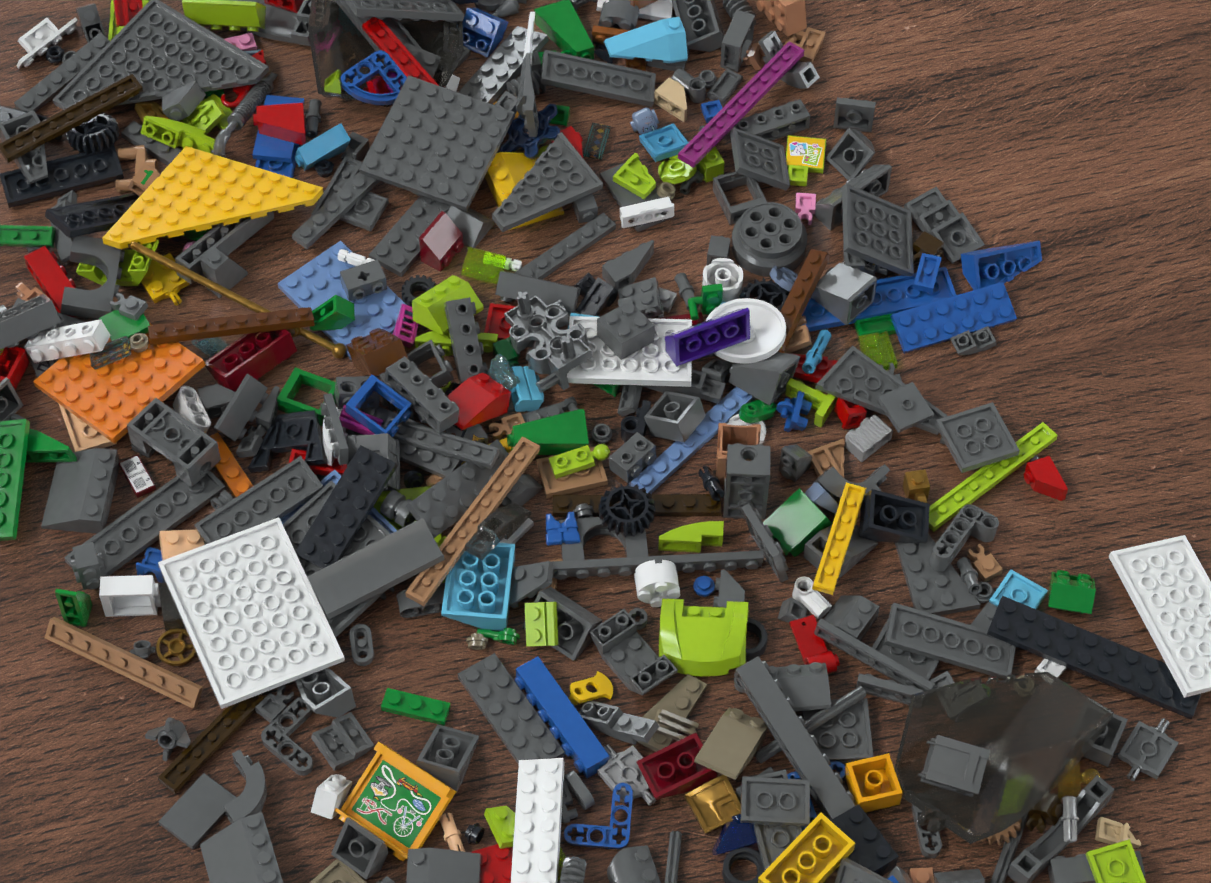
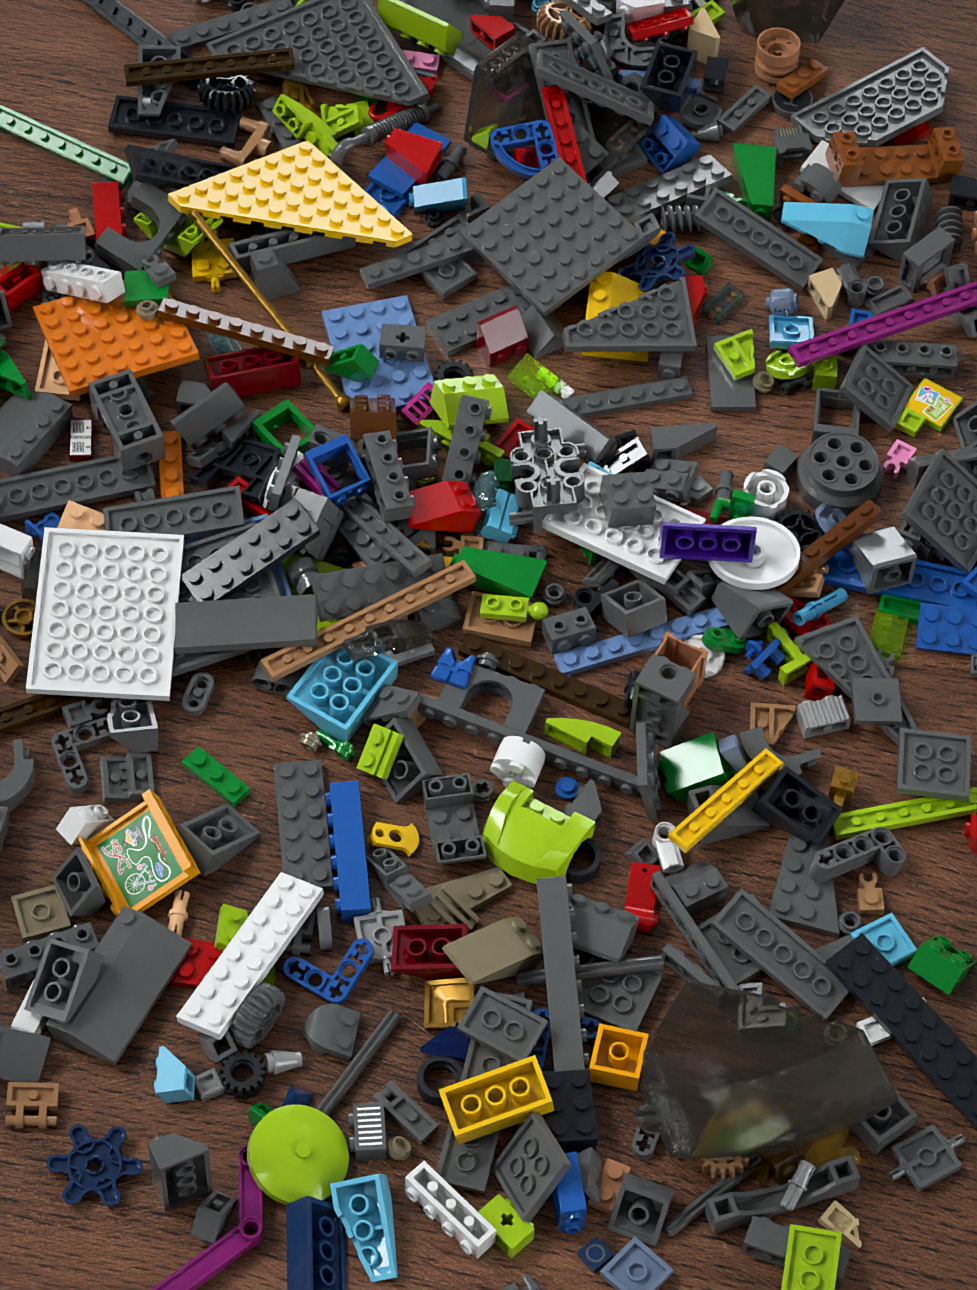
camera: 25 degrees right, 0 degrees up
(111, 352) = (116, 309): clear smoke tile -> none
(143, 179) = (246, 153): medium nougat brick -> none
(182, 101) = (328, 95): dark grey slope -> none
(191, 408) = (164, 398): white beam -> none
(352, 258) = (406, 317): white axle -> none
(474, 833) = (200, 923): black plate -> none
(526, 99) = (667, 231): dark grey plate -> none
(618, 516) = (539, 686): black gear -> none
(646, 212) = (727, 393): white piece -> none
(794, 462) = (730, 706): dark grey slope -> none
(954, 765) = (701, 1074): dark grey container -> none
(969, 576) = (843, 899): dark grey pin -> none

